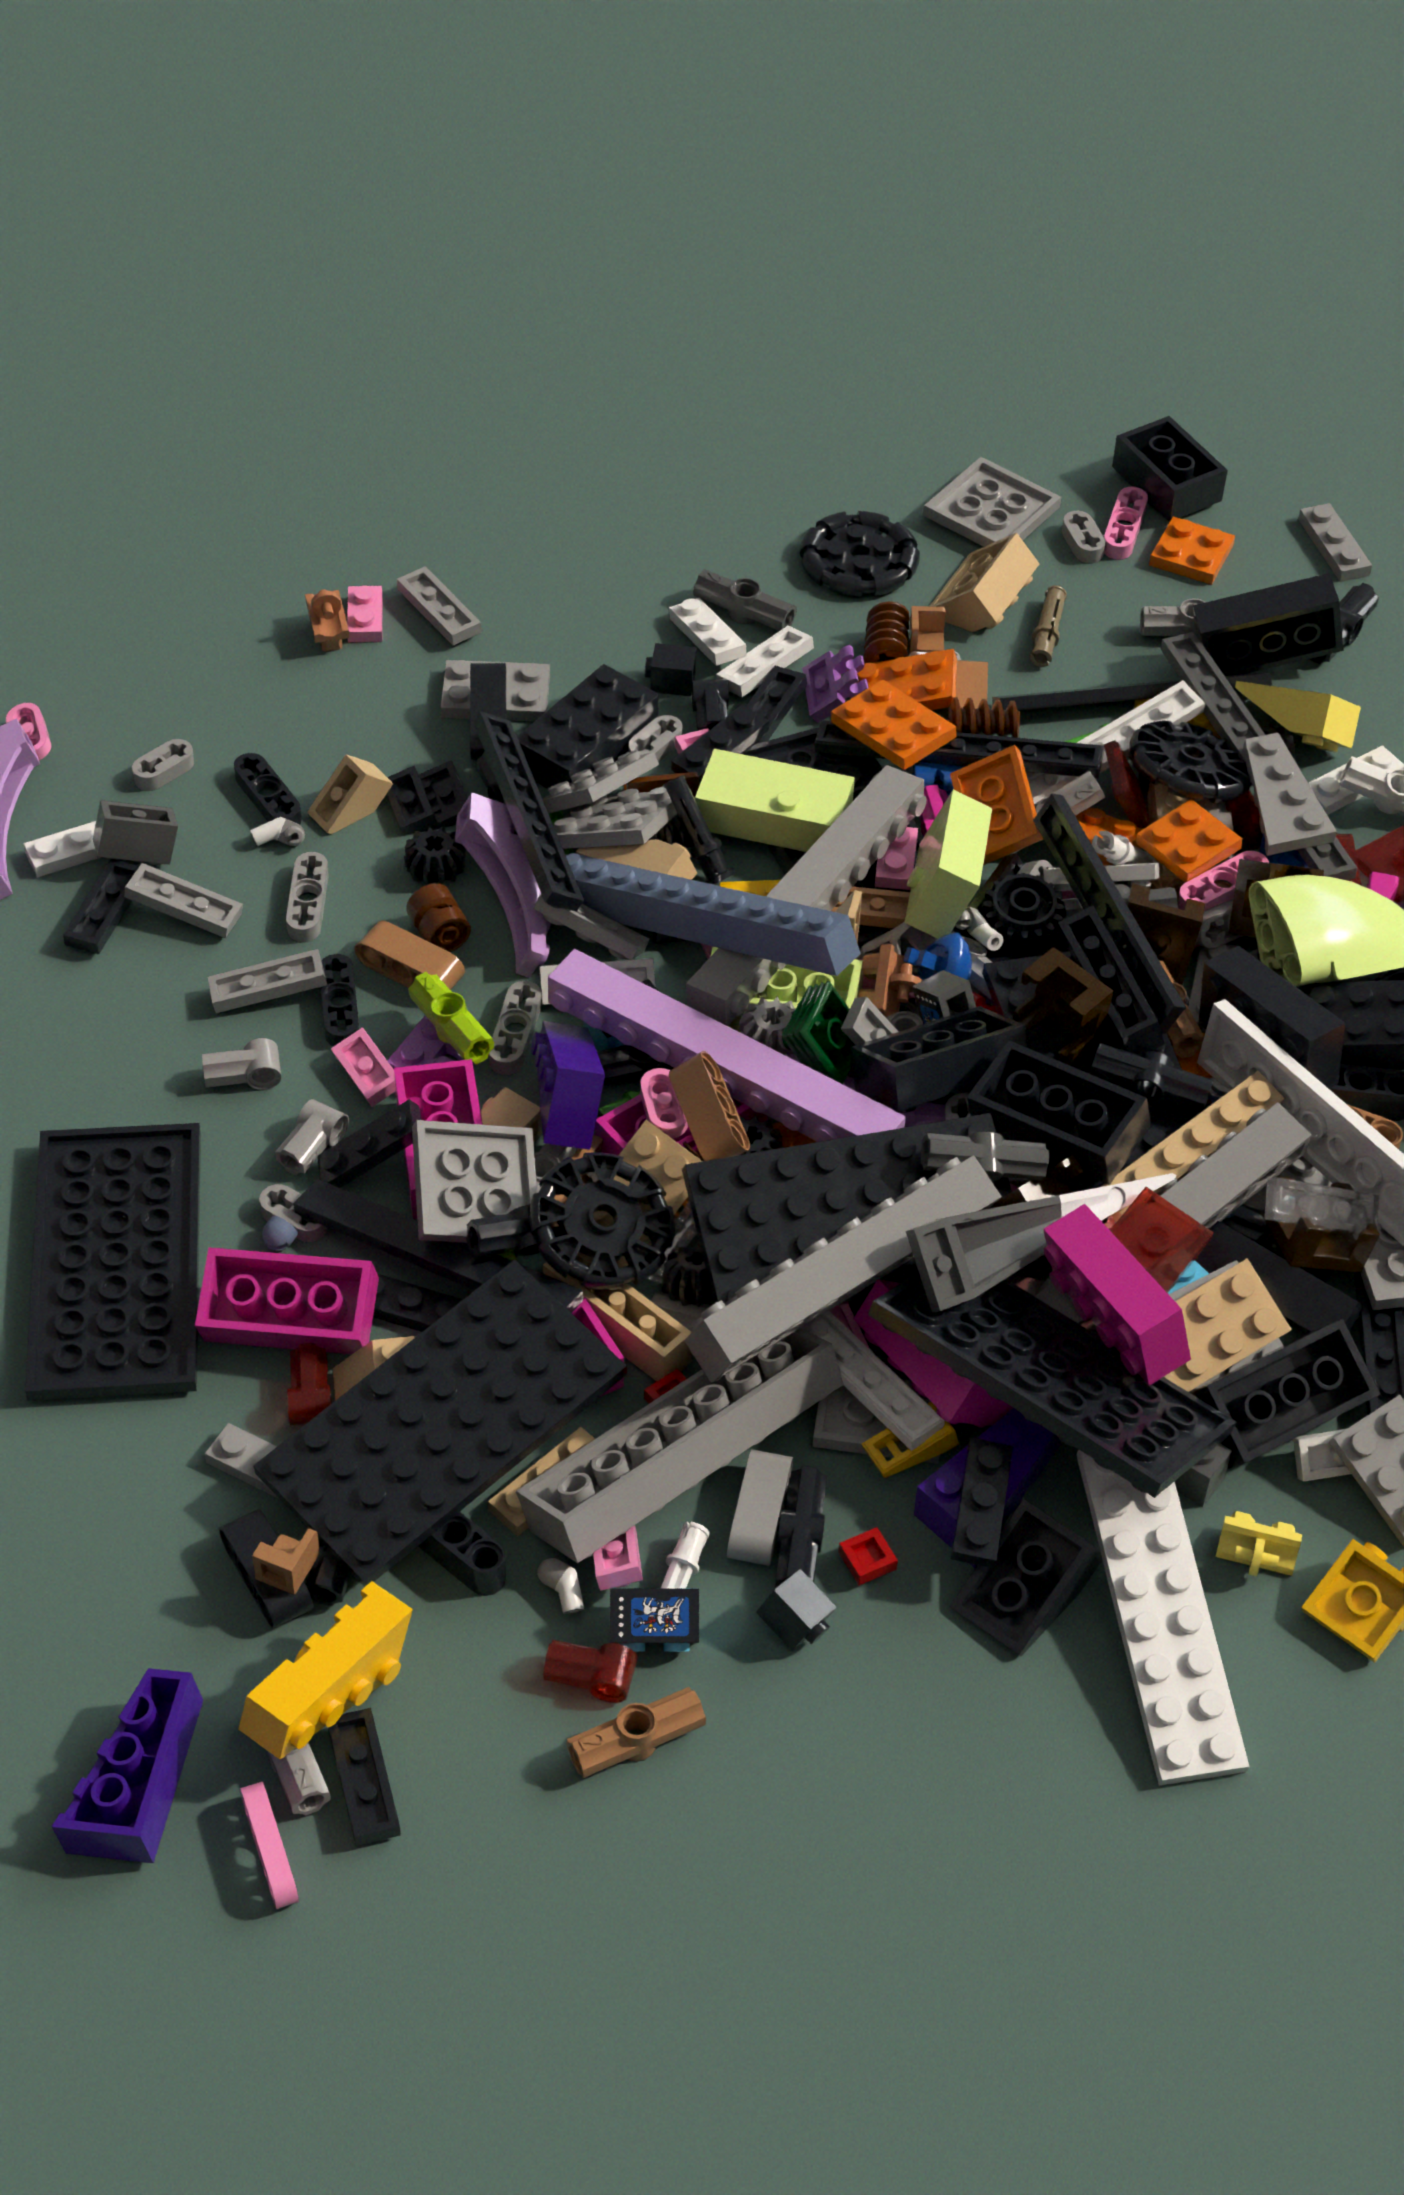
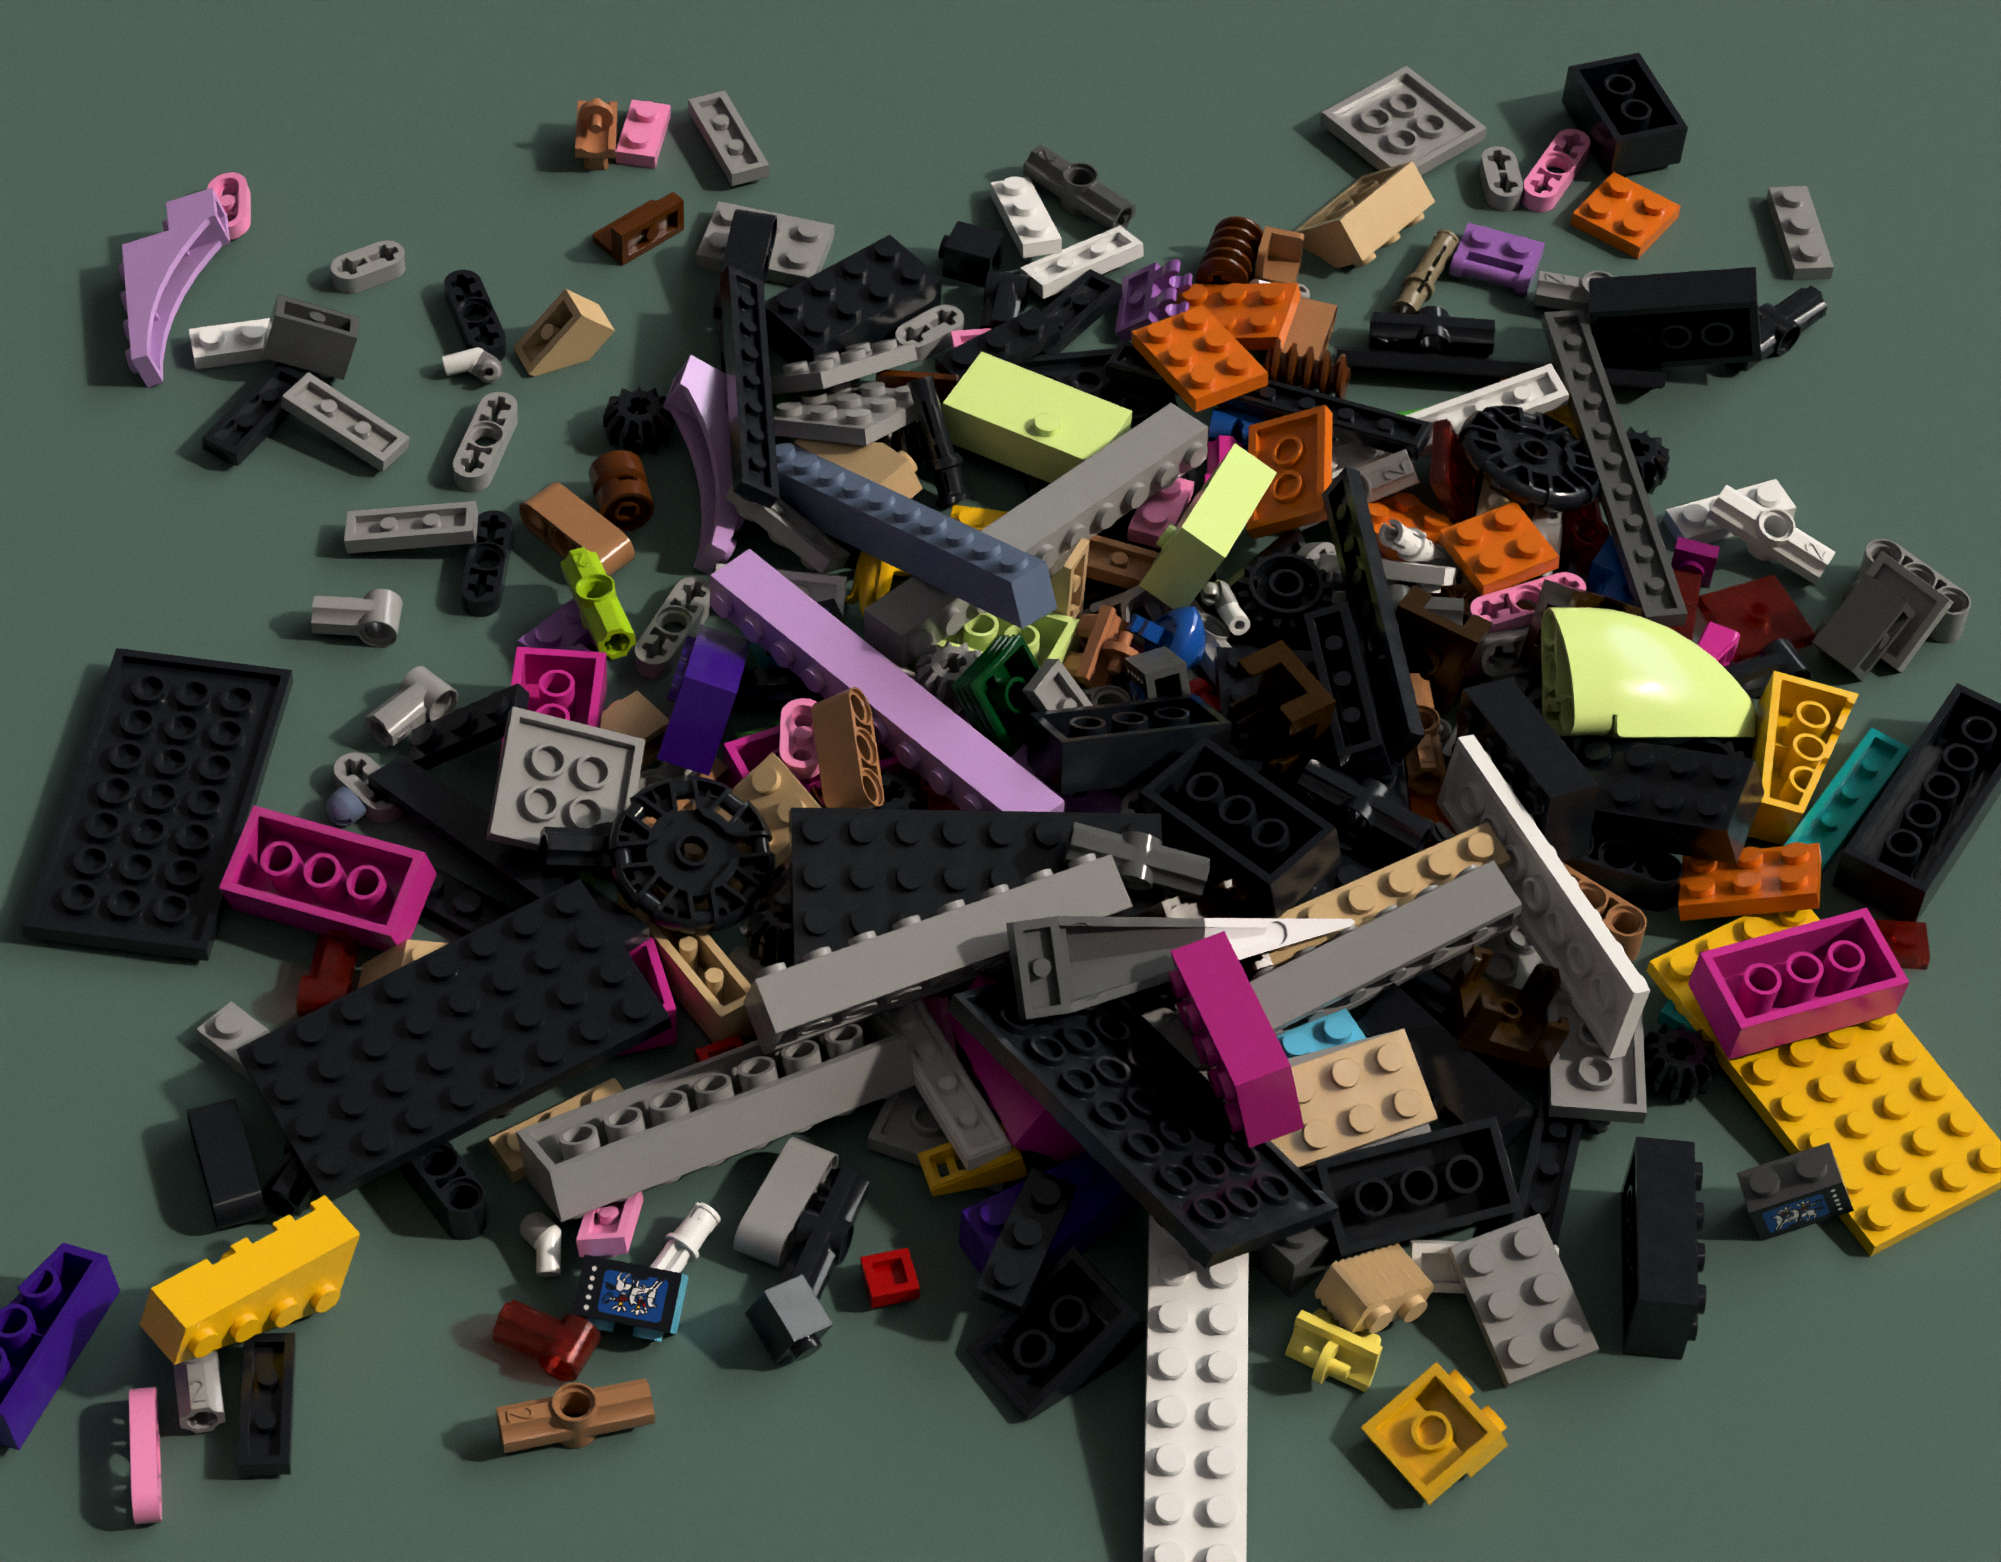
camera: 10 degrees right, 0 degrees up
(286, 1561) = (245, 1160): medium nougat panel -> none
(366, 1066) = (492, 640): bright pink plate -> none
(387, 693) = (642, 228): none -> reddish brown panel
(426, 798) = (649, 354): black slope -> none
(674, 961) = (871, 581): none -> yellow piece
(831, 548) = (1260, 167): black plate -> none
(1069, 671) = (1432, 332): none -> black piece
(1101, 602) = (1497, 258): none -> medium lavender plate
(1161, 1237) = (1308, 990): clear red plate -> none
(1279, 1486) = (1374, 1289): none -> tan brick
(1286, 803) = (1625, 519): light grey wing -> none
(1315, 716) = (1697, 431): light yellow slope -> none
(1323, 1205) = (1511, 986): clear plate -> none
(1344, 819) = (1695, 558): none -> magenta plate

